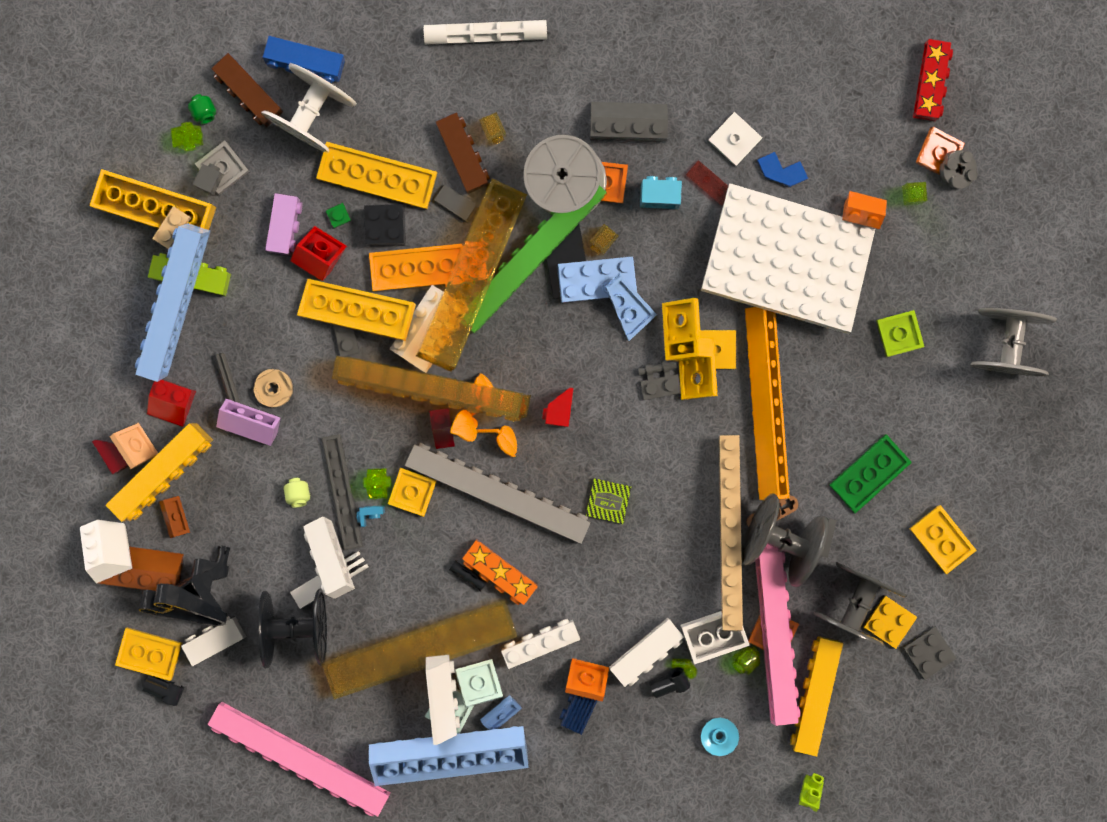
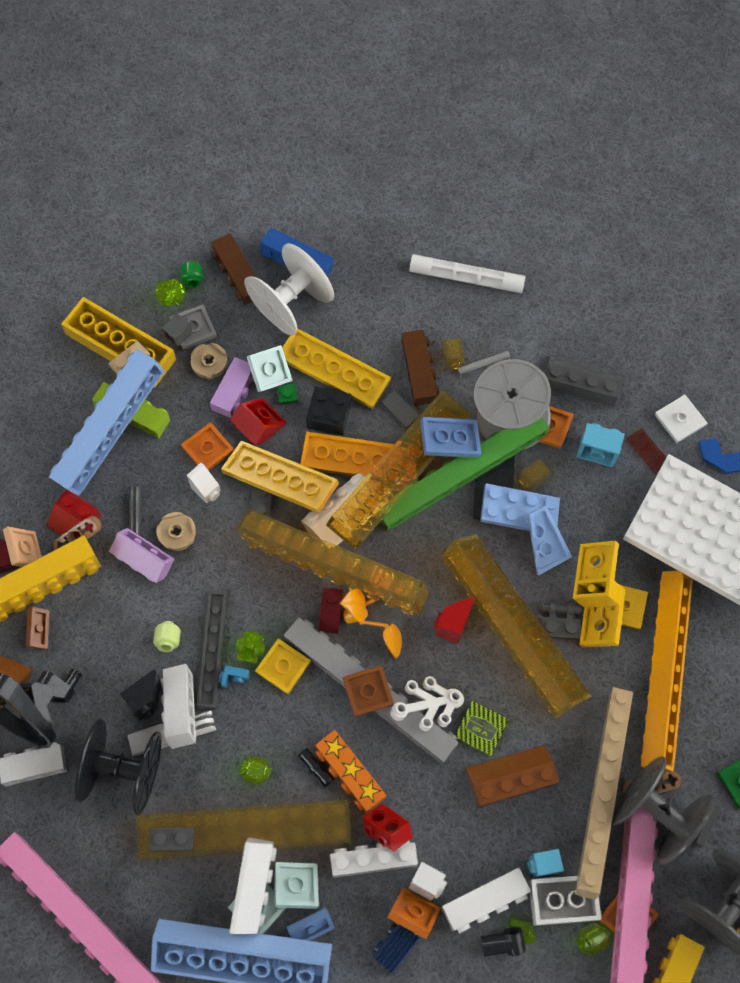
camera: 15 degrees right, 20 degrees down
(181, 413) = (79, 528): none -> medium nougat beam
(247, 190) = (212, 370): none -> tan plate
(277, 294) = (207, 447): none -> orange plate
(286, 336) = (203, 483): none -> white slope
(293, 557) = (143, 695): none -> black slope
(313, 196) = (269, 368): none -> light aqua plate
(359, 676) = (171, 839): none -> dark grey plate
(414, 593) = (255, 770): none -> clear neon green head
(497, 499) = (368, 691): none -> dark orange plate
(512, 230) = (450, 437): none -> medium blue plate
(526, 128) = (484, 362): none -> light grey bar
(545, 615) = (387, 827): none -> red brick
(557, 493) = (430, 703): none -> white plant
(592, 657) = (428, 882): none -> white brick
(617, 398) = (516, 625): none -> clear yellow brick
(645, 537) = (512, 776): none -> dark orange slope
(691, 610) = (545, 864): none -> medium azure brick

